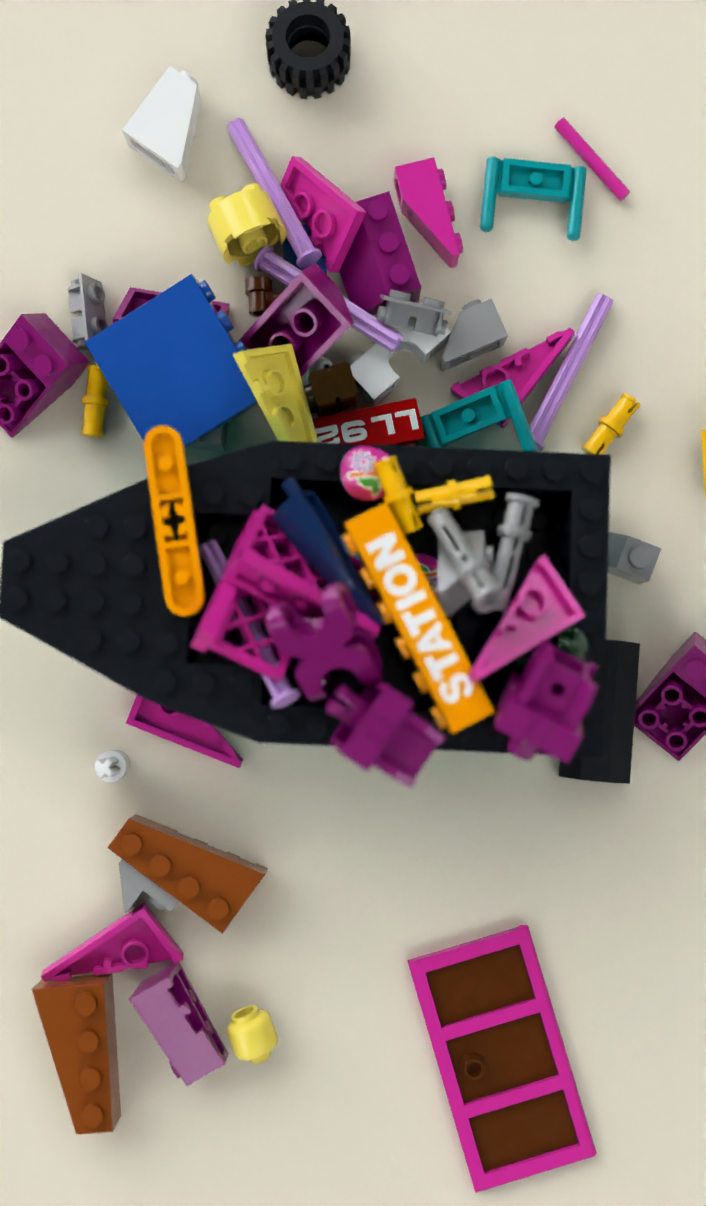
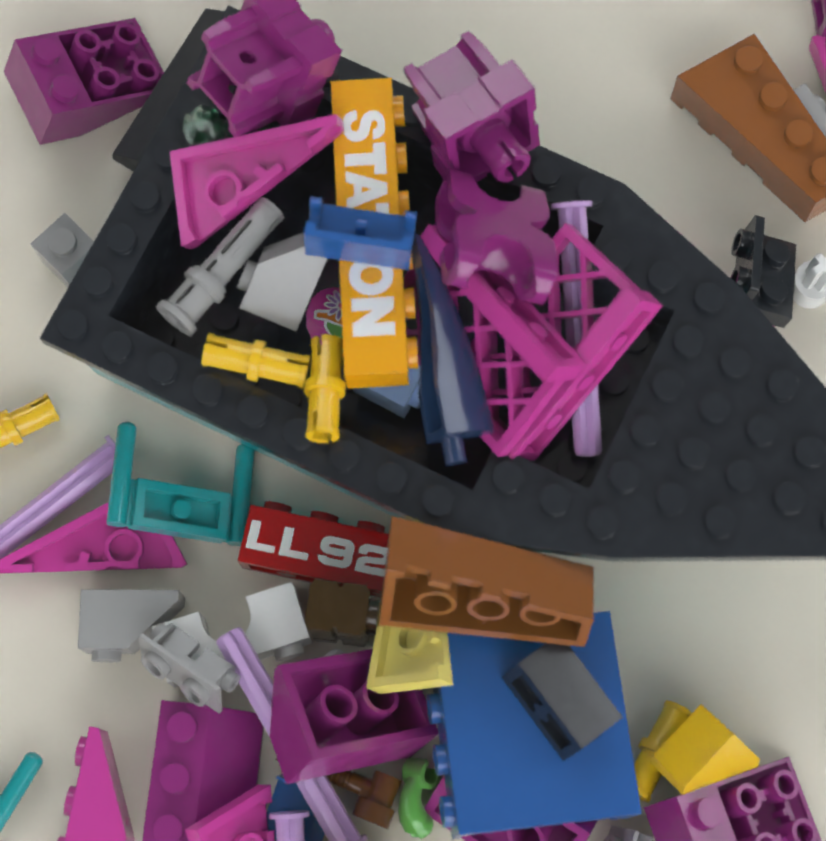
camera: 150 degrees left, 10 degrees down
(62, 405) = (702, 753): none -> yellow slope
(147, 752) = (765, 271): none -> black bracket
(161, 385) = (562, 698): none -> black hinge
(167, 484) = (609, 525): light orange piece -> none
(234, 296) = (410, 808): none -> bright green arm
(242, 419) = (483, 587): none -> dark orange wedge
(360, 475) = (359, 442): sticker -> none
(420, 601) = (359, 235): none -> blue hinge
(472, 570) = (278, 237): light grey pin -> none

